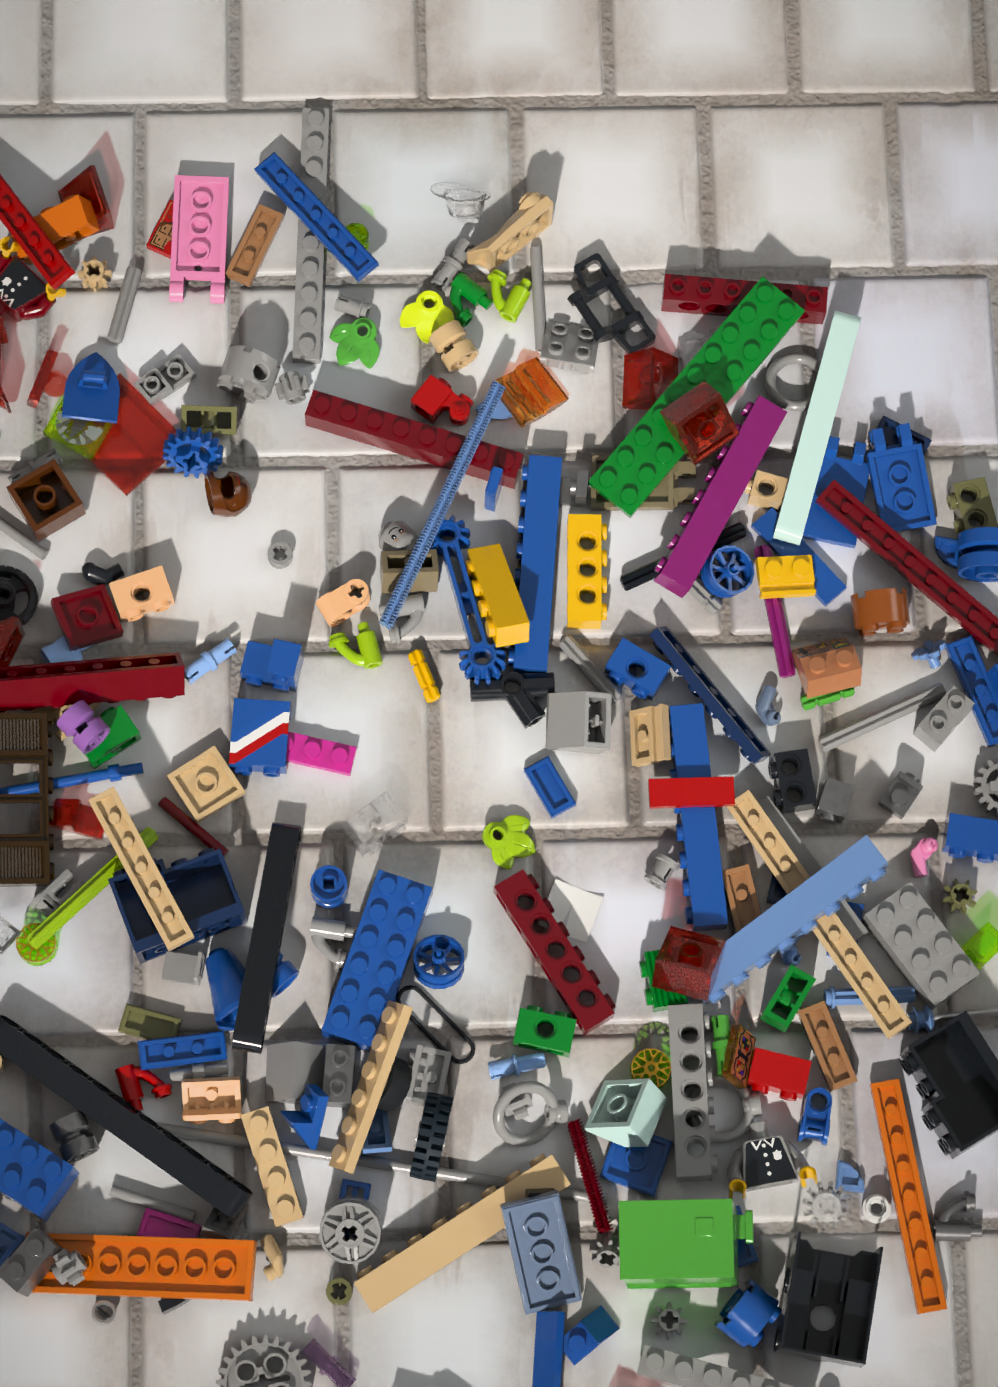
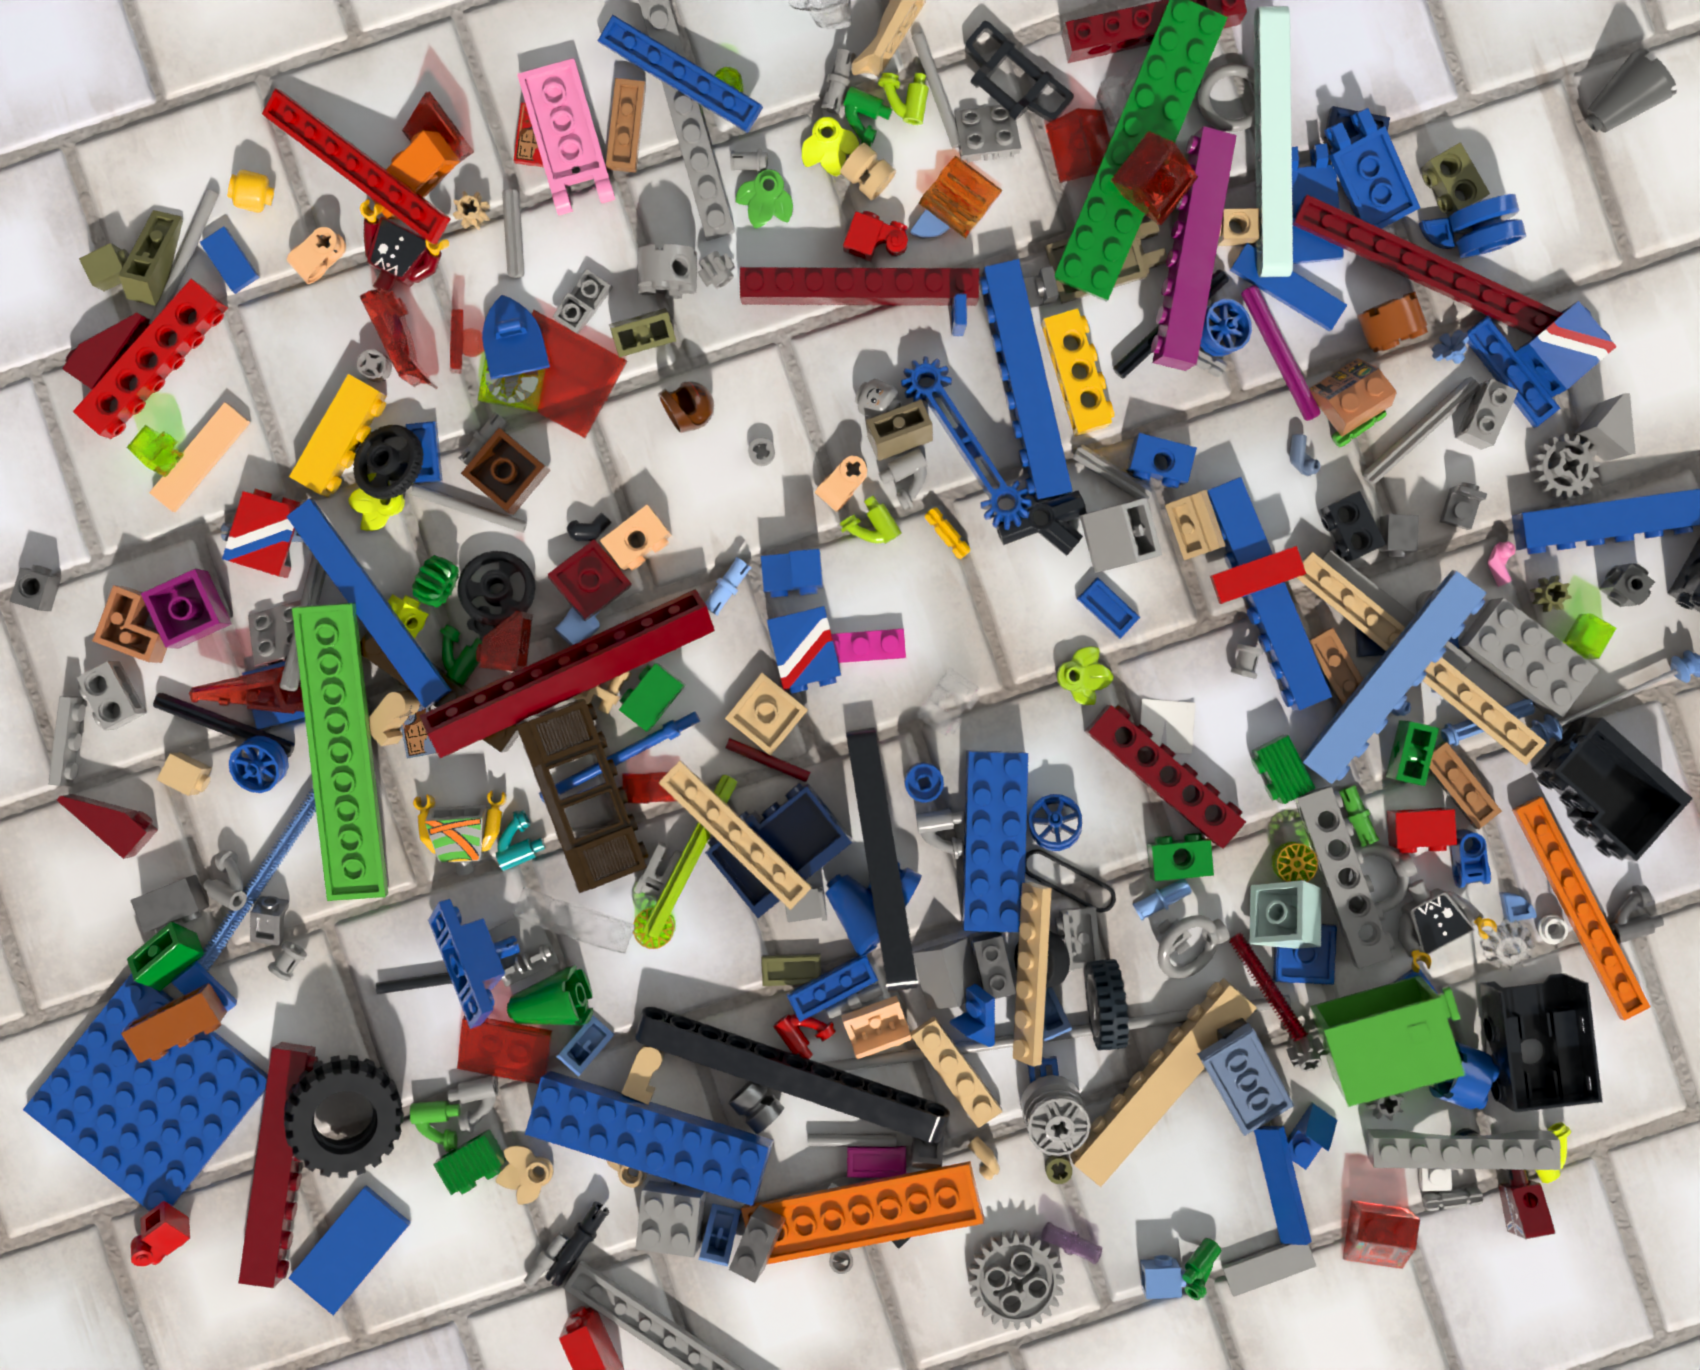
camera: 15 degrees left, 15 degrees up
(69, 1267) = (796, 1239): light grey gear -> none
(74, 723) = (616, 697): medium lavender wheel -> none
(192, 452) = (638, 373): blue gear -> none
(451, 484) = (913, 351): medium blue axle -> none
(497, 595) = (1000, 430): yellow brick -> none
(688, 963) = (1310, 754): clear red slope -> none
(703, 687) = (1250, 469): dark blue plate -> none
(738, 1056) = (1379, 825): tile -> none
(785, 576) = (1284, 314): yellow plate -> none

